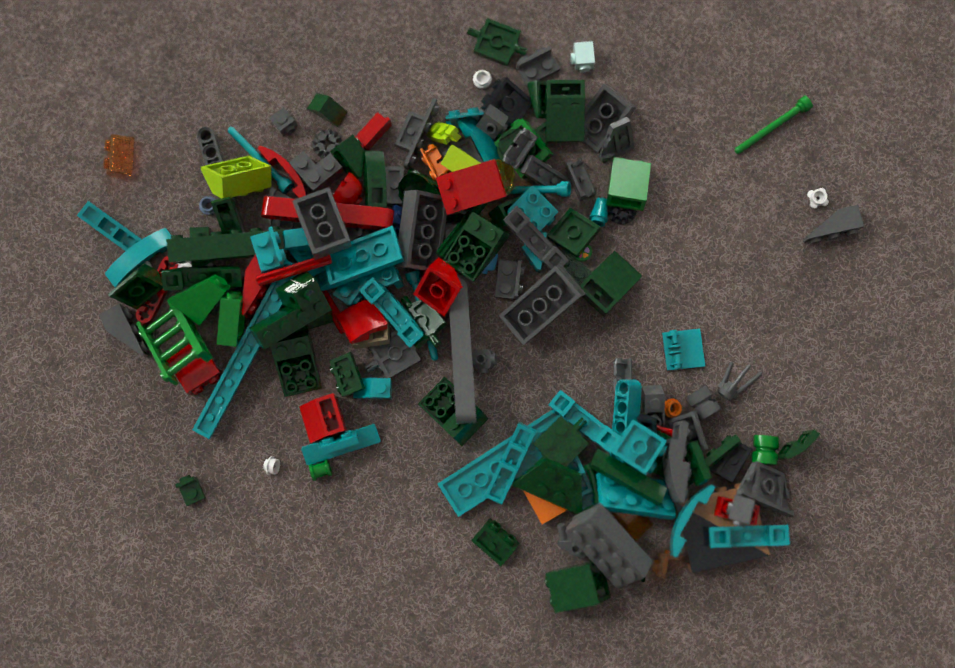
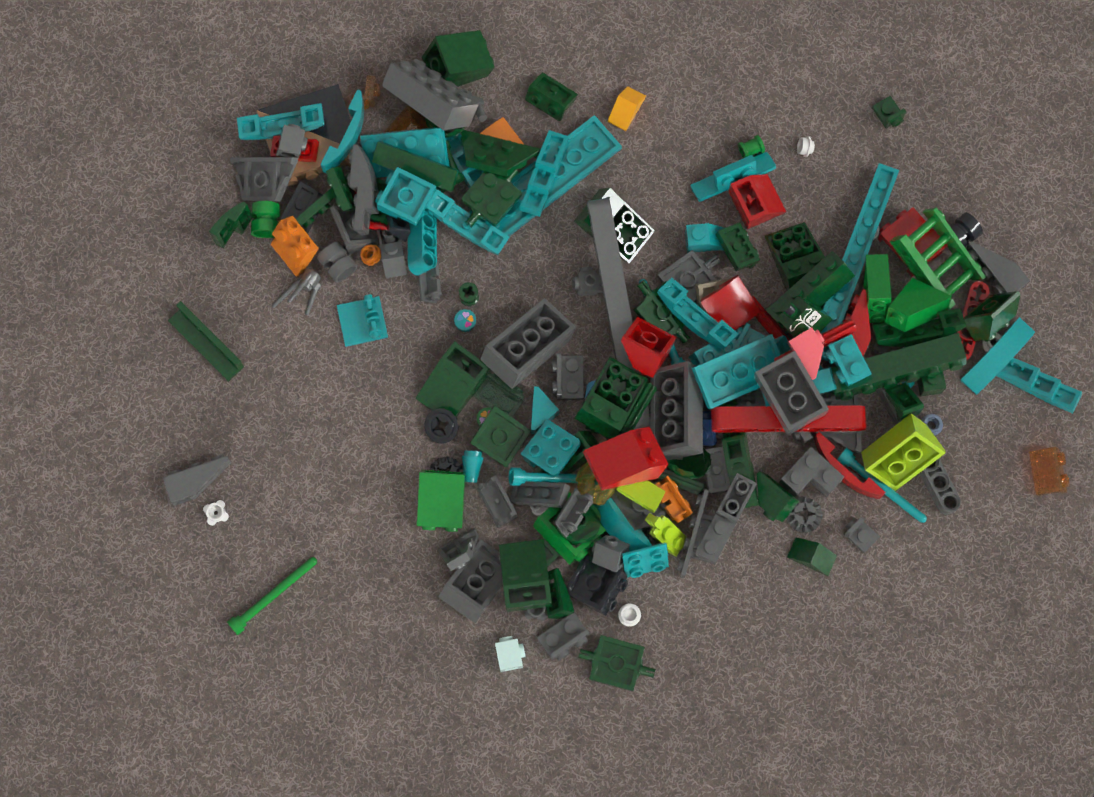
camera: 170 degrees right, 5 degrees down
(145, 369) = (966, 228): none -> black wheel
(301, 258) = (809, 349): none -> coral slope
(349, 190) = (771, 449): red cylinder -> none
(373, 131) = (752, 534): red panel -> none
(394, 138) = (725, 518): none -> dark grey slope
(427, 523) = (625, 108): none -> light orange slope
(534, 239) = (543, 412): dark grey slope -> none
(593, 340) = (465, 320): none -> teal tile
(594, 359) = (466, 288): none -> dark green bush
(625, 242) = (432, 421): none -> black gear
(741, 420) = (293, 245): none -> orange plate
(822, 345) = (206, 342): none -> dark green fence

